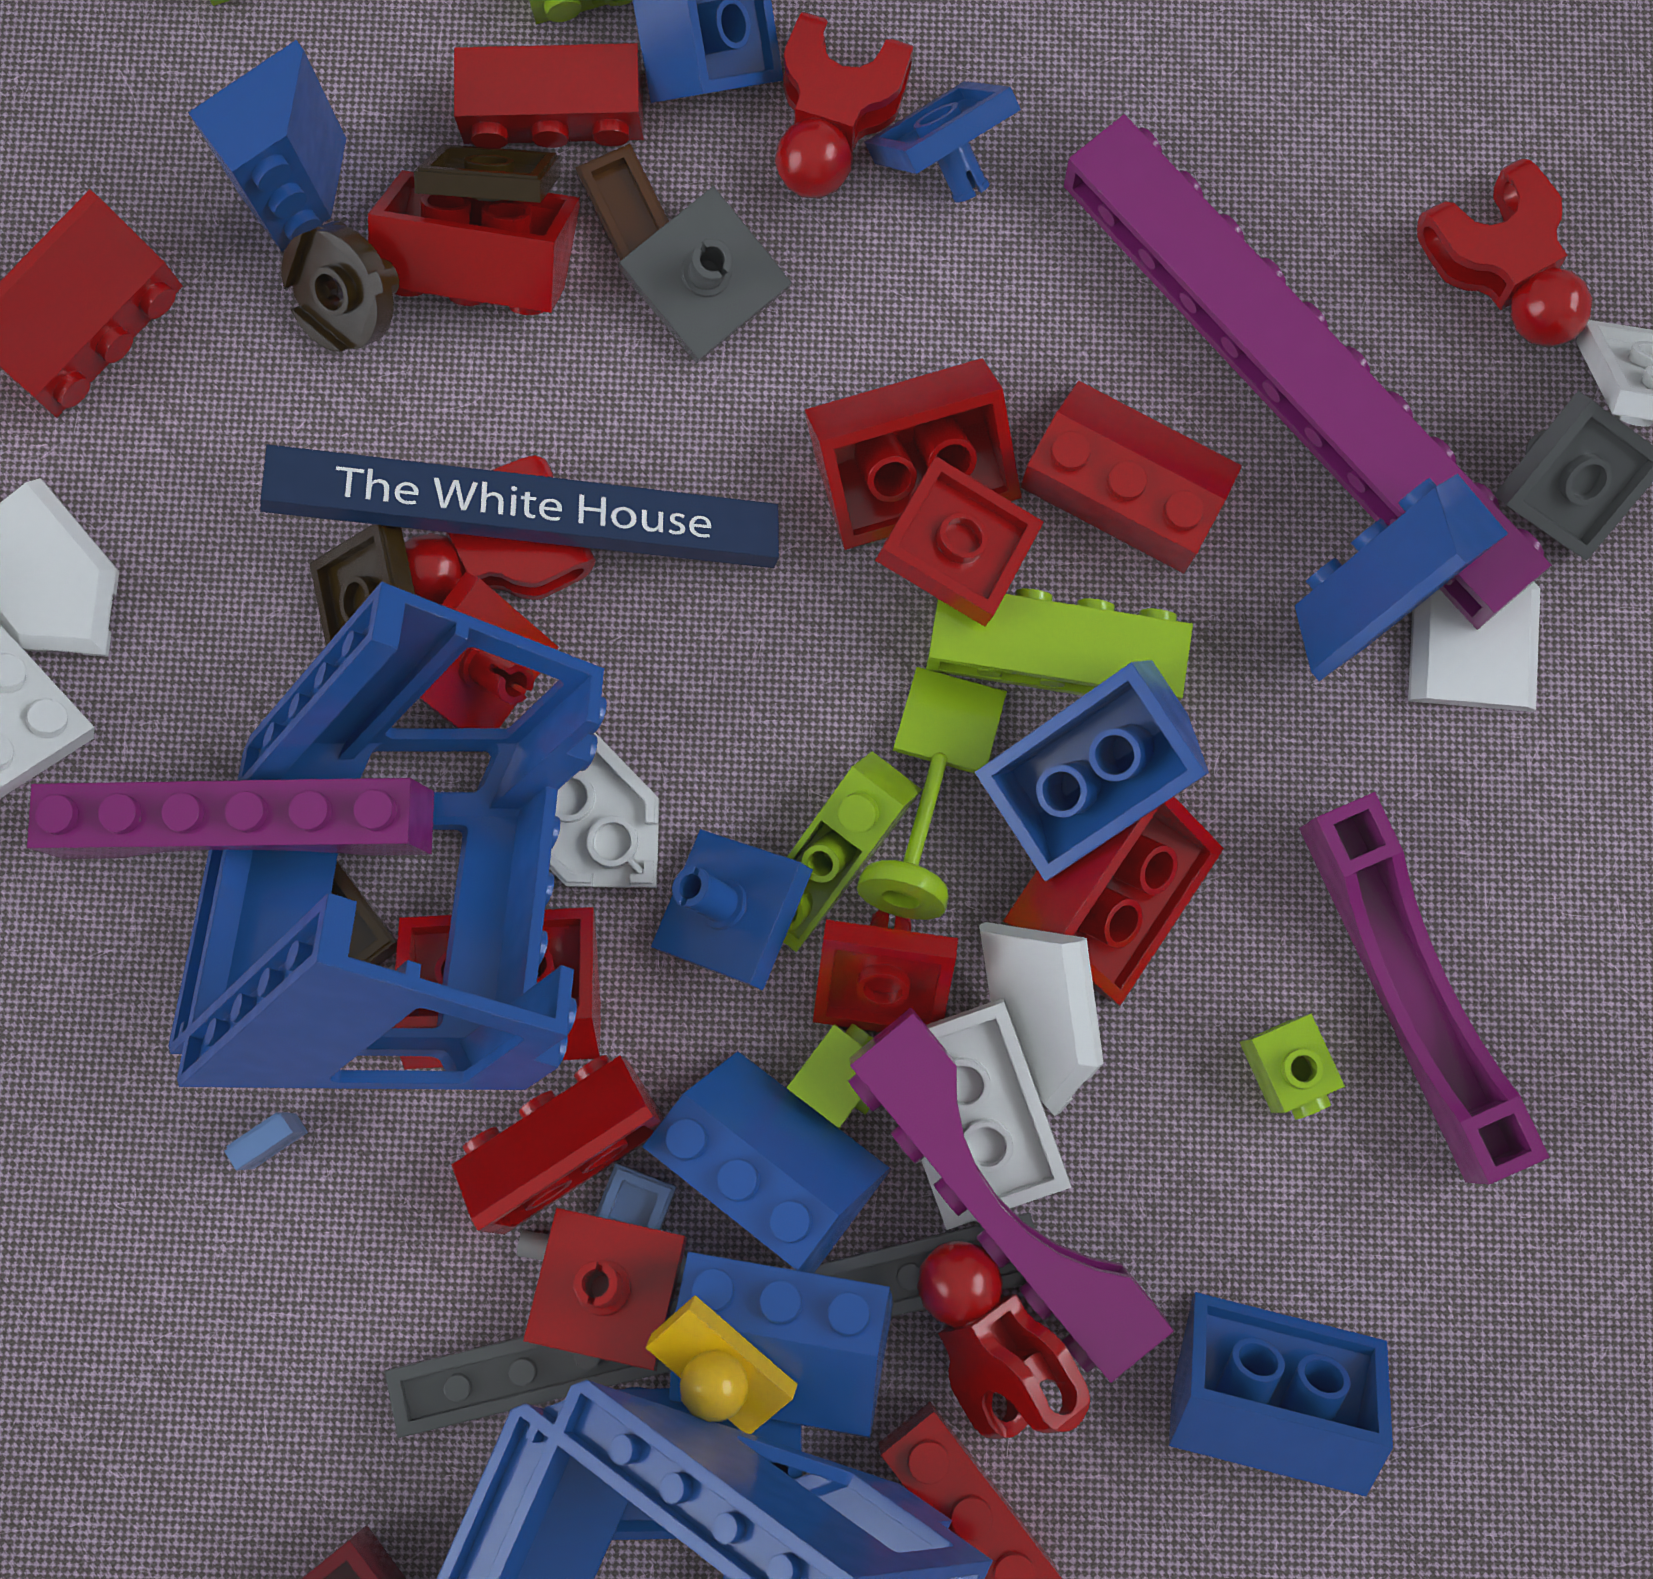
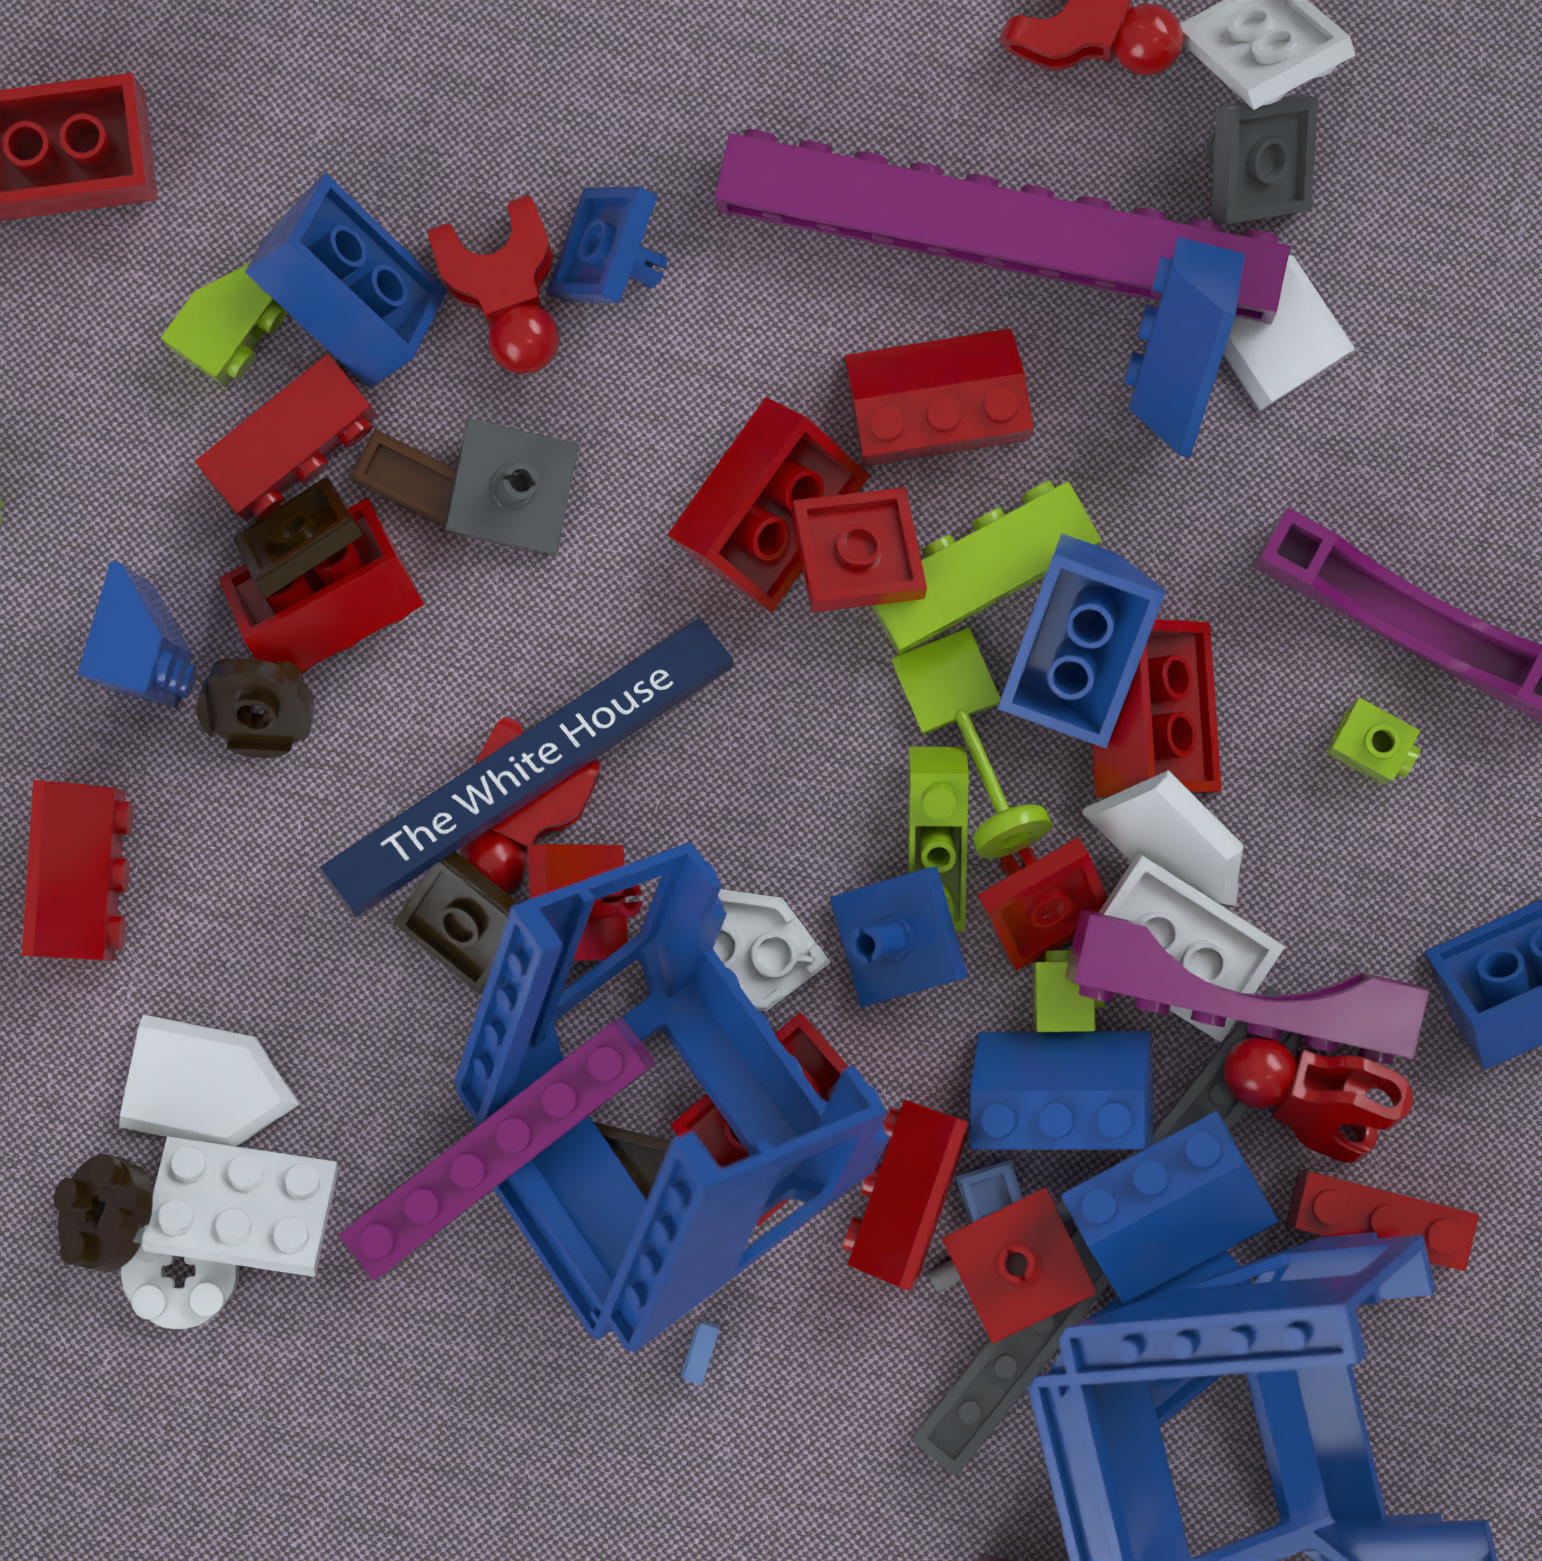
camera: 30 degrees left, 5 degrees up
(720, 1368) = (1144, 1253): yellow tile -> none

